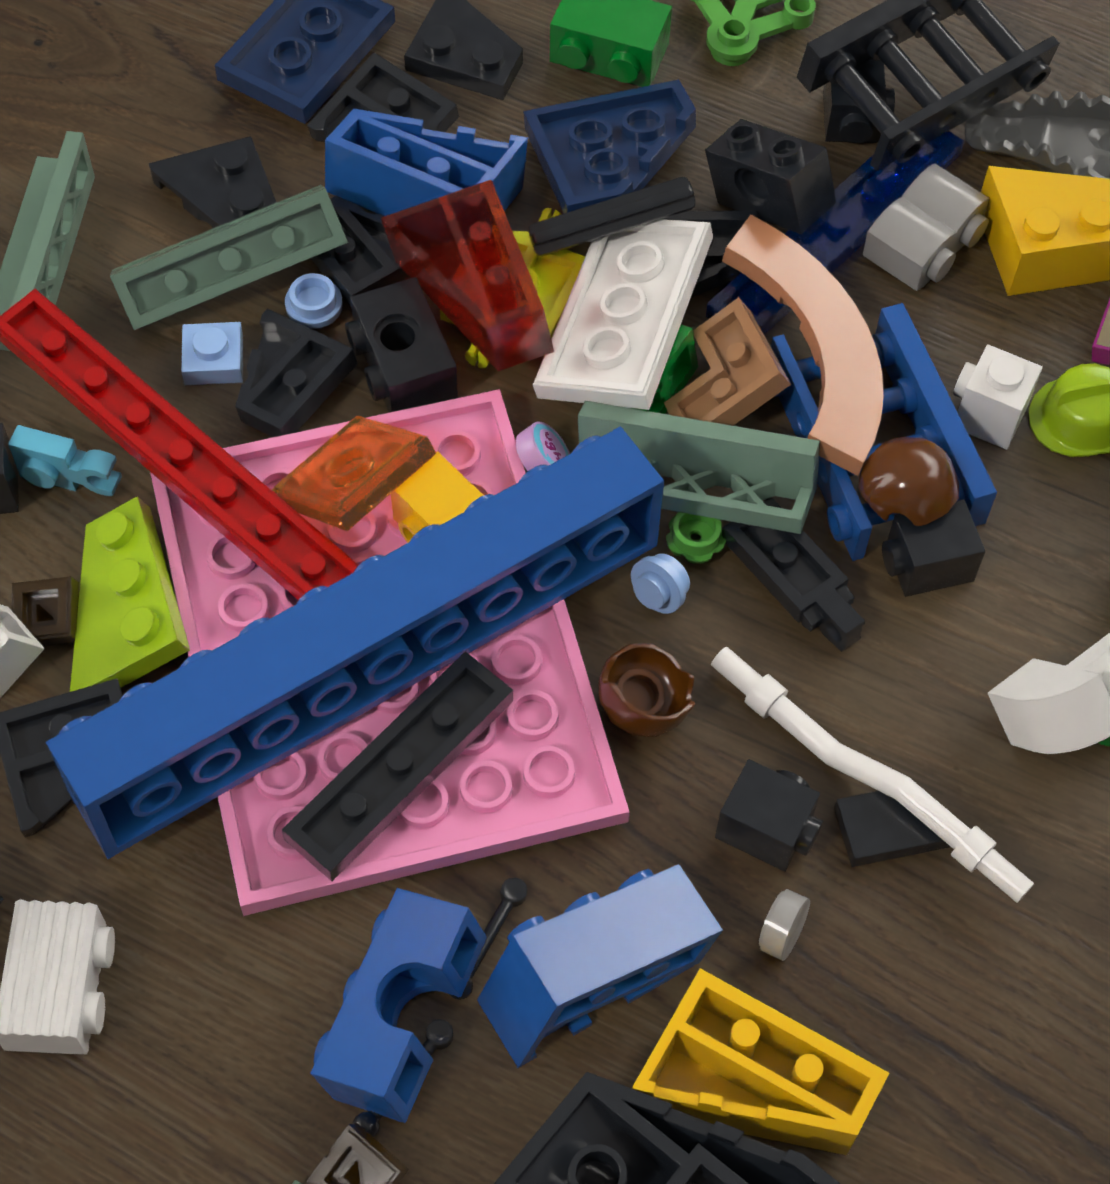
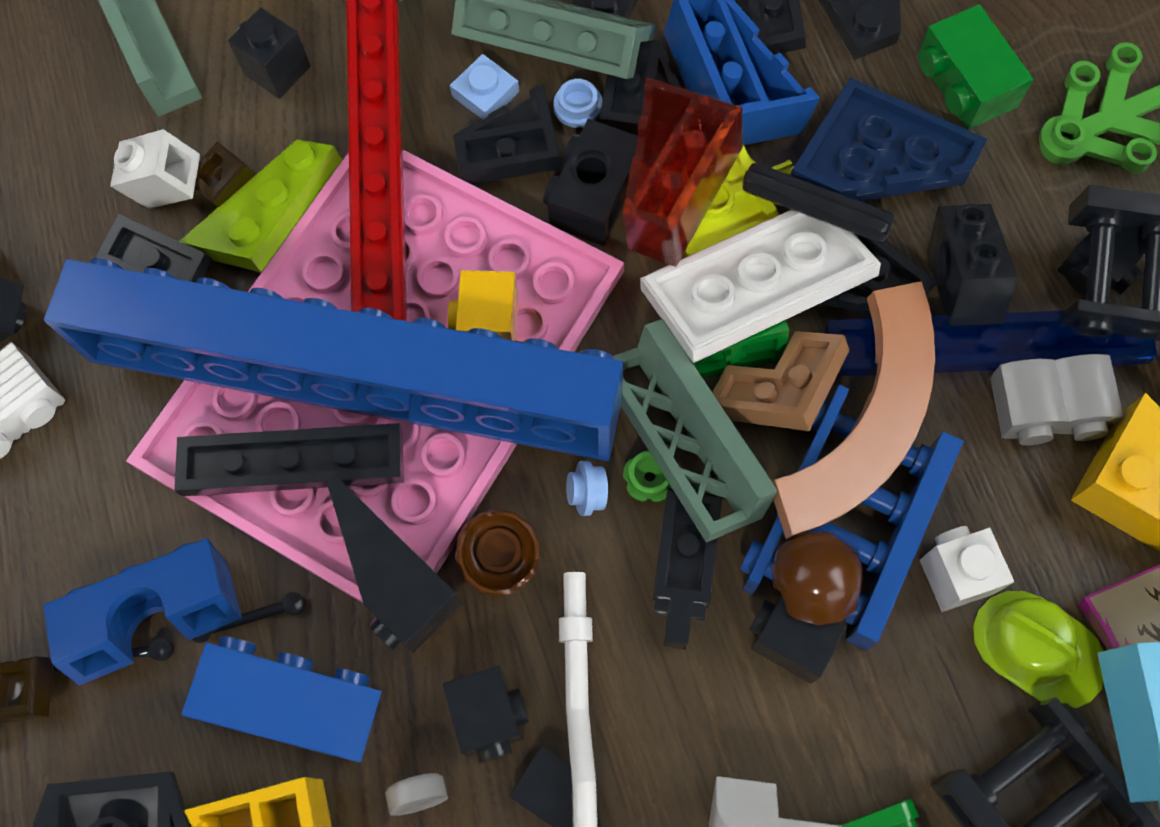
camera: 50 degrees right, 10 degrees up
(55, 461) = (315, 82): medium azure plate -> none
(354, 472) = (456, 241): clear orange tile -> none
(540, 445) = (609, 329): lavender tile -> none
(590, 769) = (391, 577): none -> black slope

